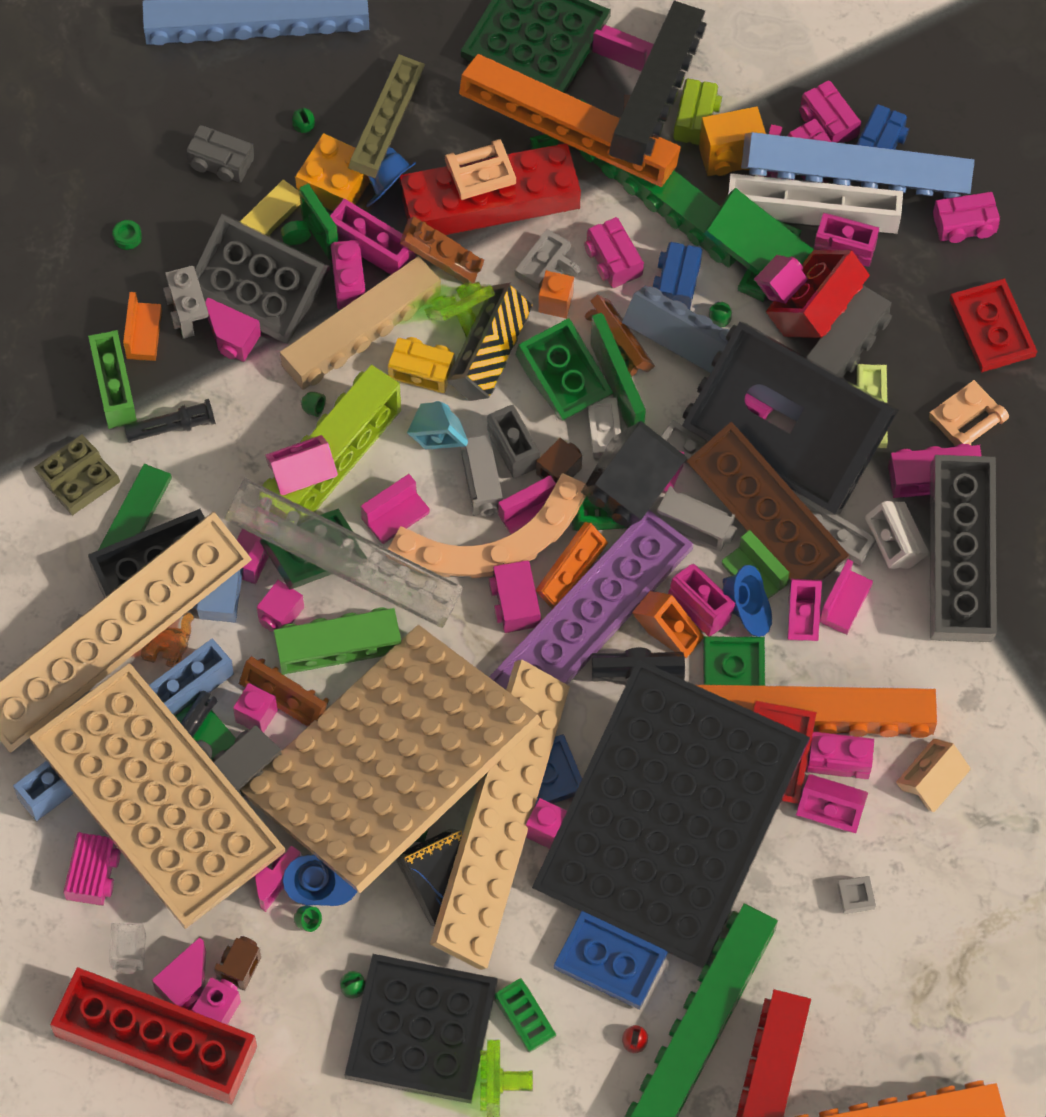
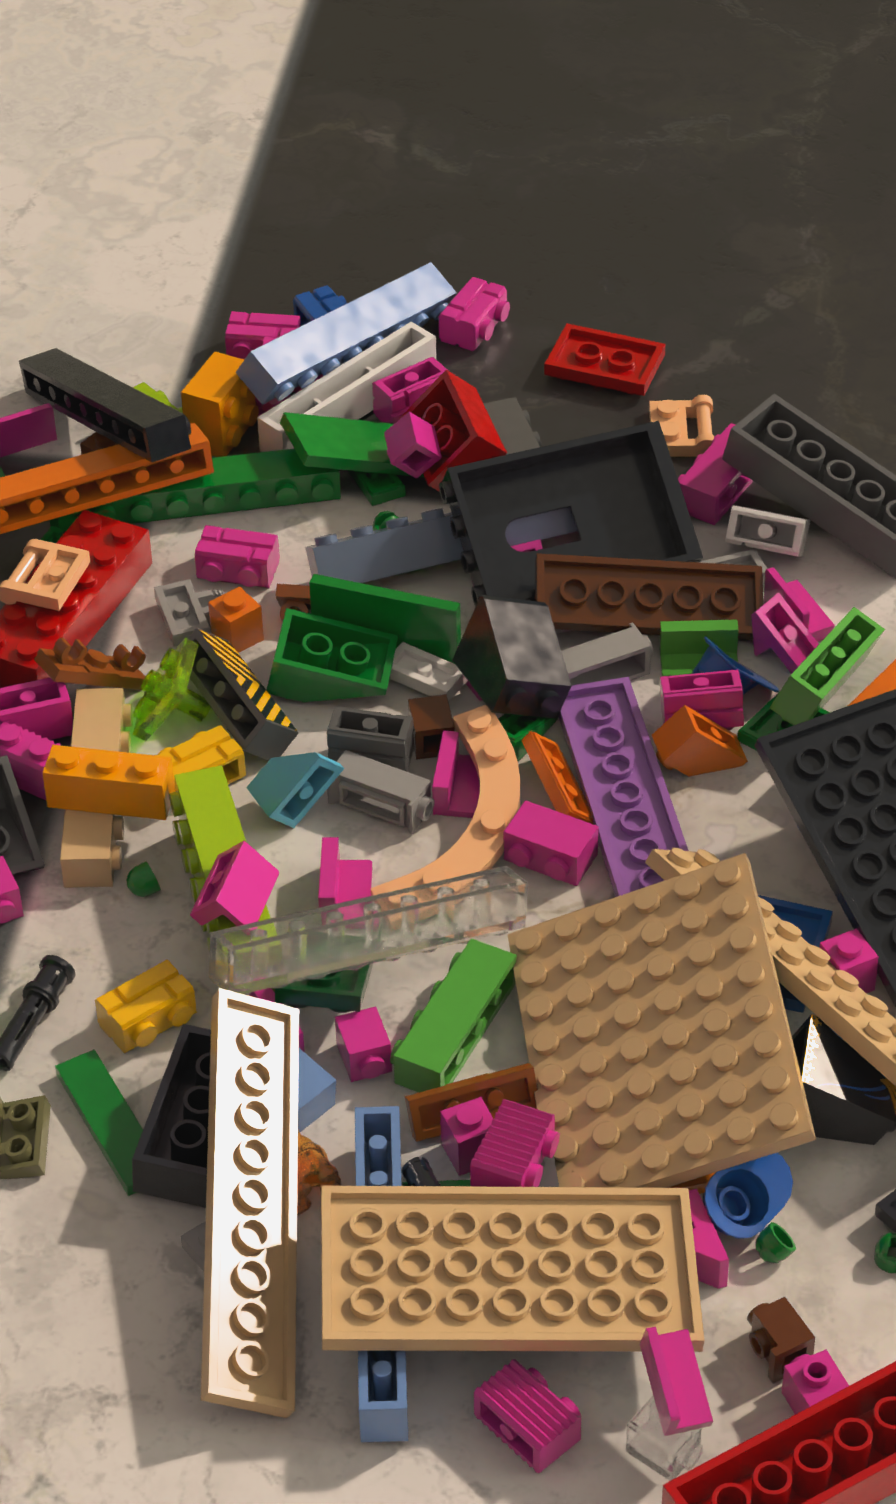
camera: 50 degrees left, 20 degrees down
(143, 928) = (675, 1381): none -> dark pink panel
(184, 977) = (753, 1396): dark pink slope -> none
(216, 475) = (146, 1006): none -> yellow brick
(242, 741) = (514, 1147): none -> dark pink brick
(345, 331) = (108, 782): none -> light orange brick
(620, 665) = (724, 798): black piece -> none
(679, 272) = (309, 517): blue brick -> none
(786, 653) = (827, 668): none -> bright green brick

